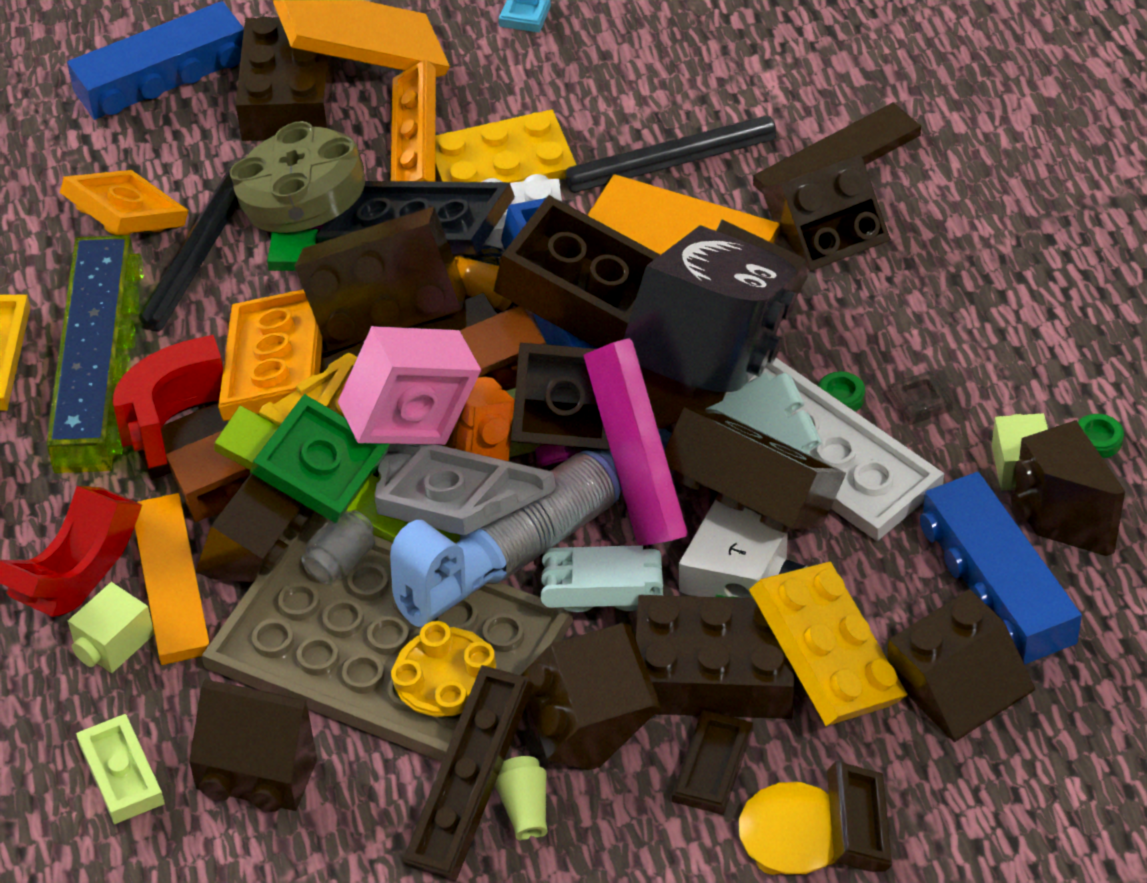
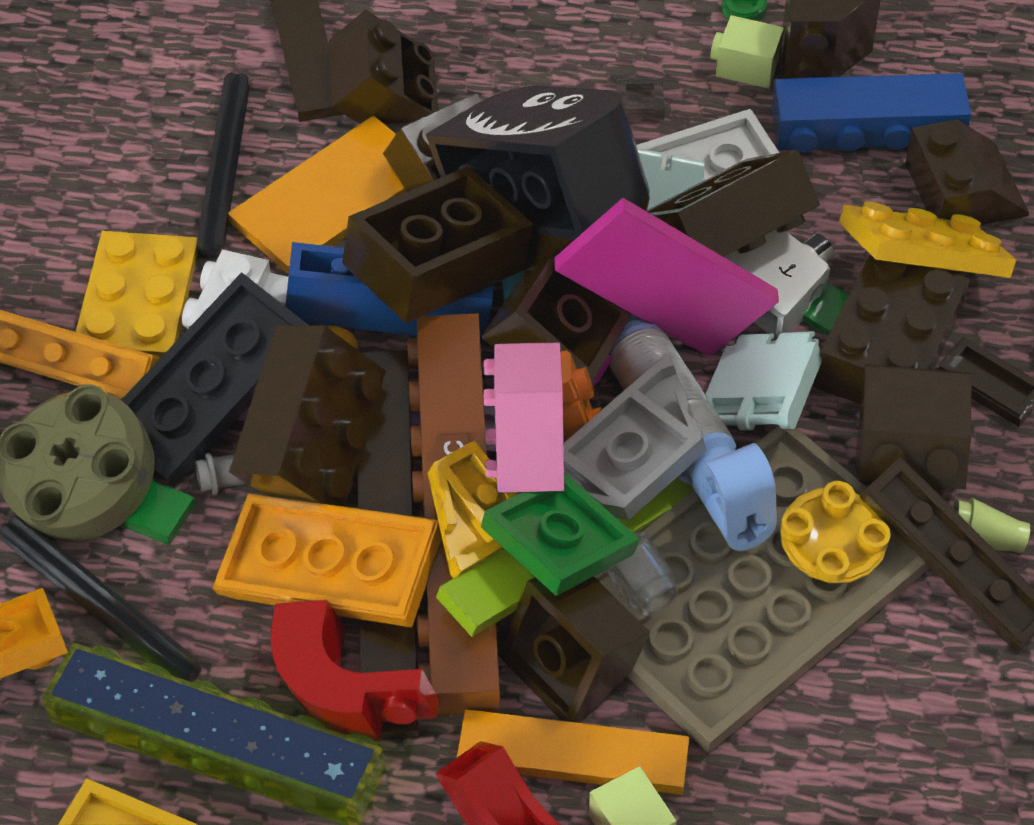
camera: 70 degrees left, 5 degrees up
(252, 746) = (865, 724): dark brown slope -> none

